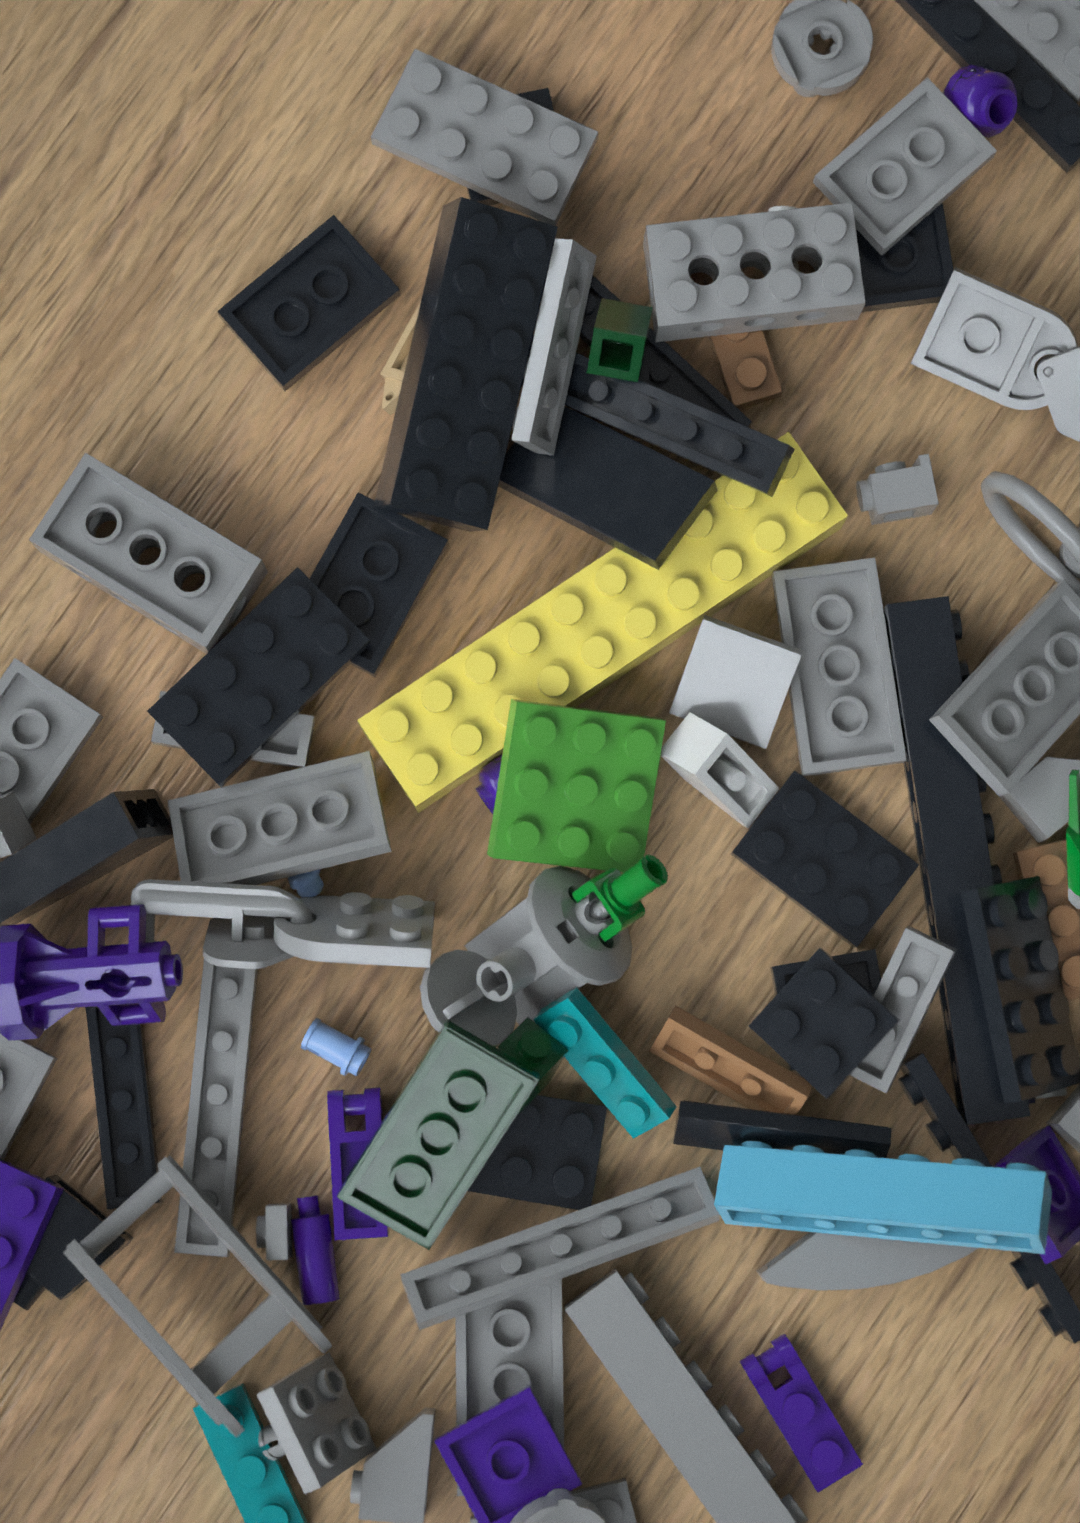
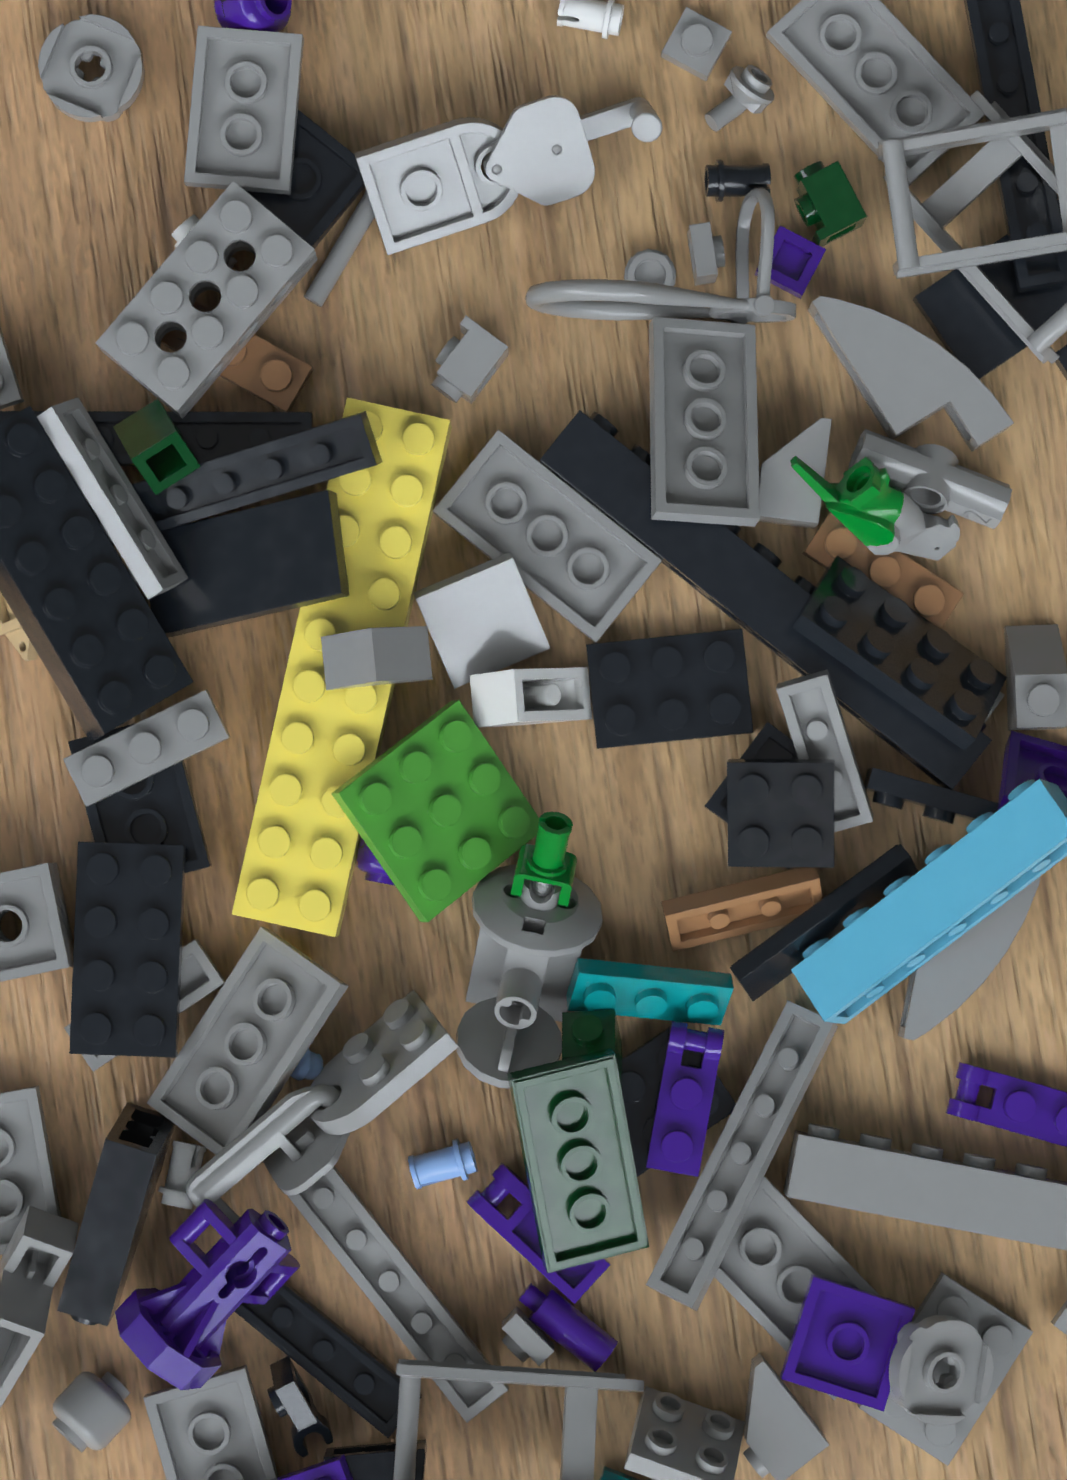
camera: 40 degrees left, 5 degrees up
(67, 1113) = (293, 1398): none -> black plate
(155, 866) = (184, 1162): none -> white pin
(409, 547) = (146, 748): none -> light grey plate
(555, 1167) = (684, 1101): none -> dark purple plate
(636, 632) = (376, 657): none -> light grey slope
(877, 332) = (341, 252): none -> light grey bar

